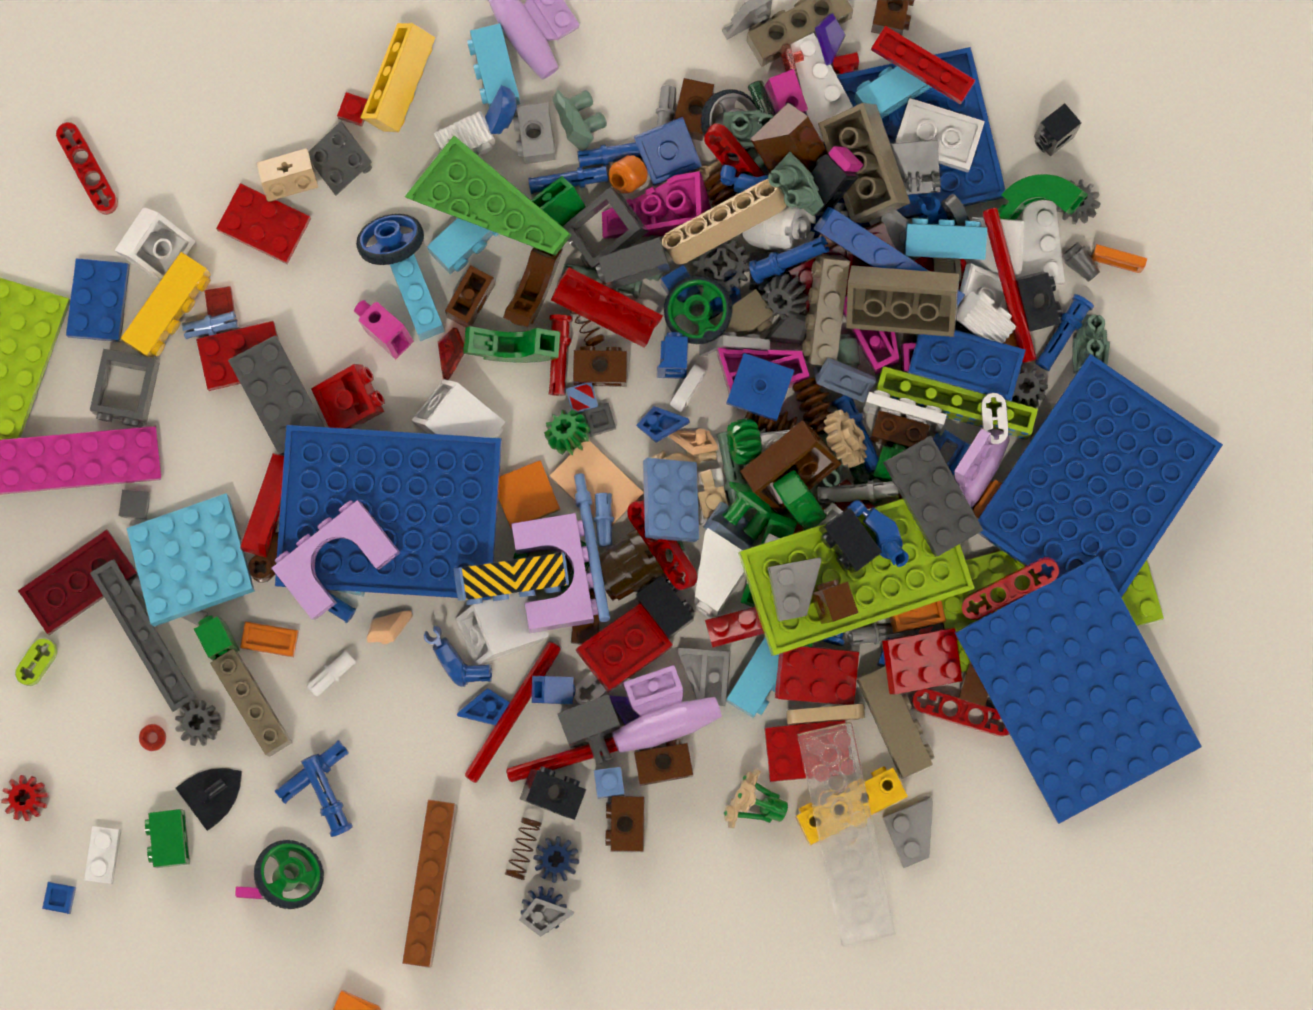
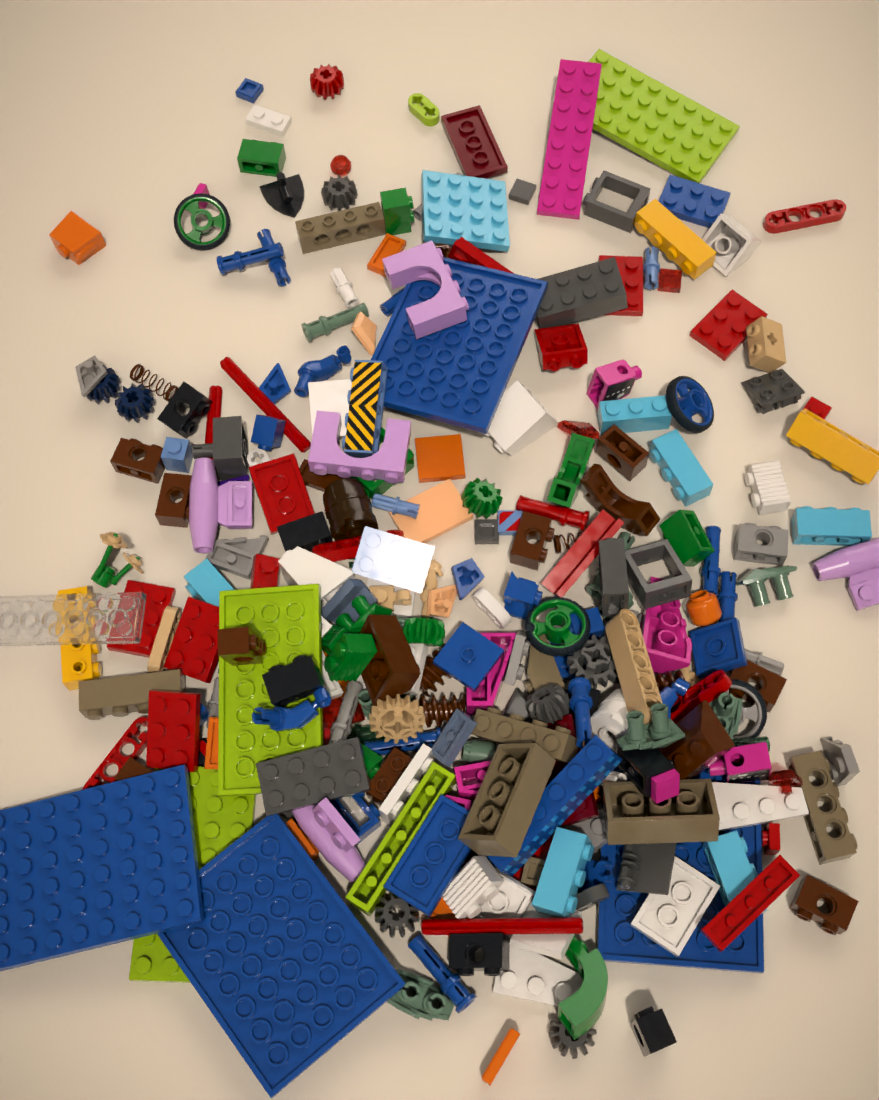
camera: 110 degrees right, 15 degrees down
(143, 635) = (411, 171): dark grey plate -> none
(390, 676) = (326, 324): none -> sand green pin
(429, 883) = (155, 311): dark orange brick -> none
(475, 192) = (707, 475): bright green wing -> none
(501, 110) = (786, 517): blue brick -> none
(583, 501) = (417, 493): medium blue bar -> none
(793, 587) = (271, 621): light grey wing -> none
(830, 37) = (800, 825): dark purple piece -> none
(911, 832) = (37, 684): light grey wing -> none
(1001, 417) = (369, 869): white beam -> none
(1012, 592) = (209, 828): red beam -> none
(1081, 262) = (508, 1016): dark grey cone -> none

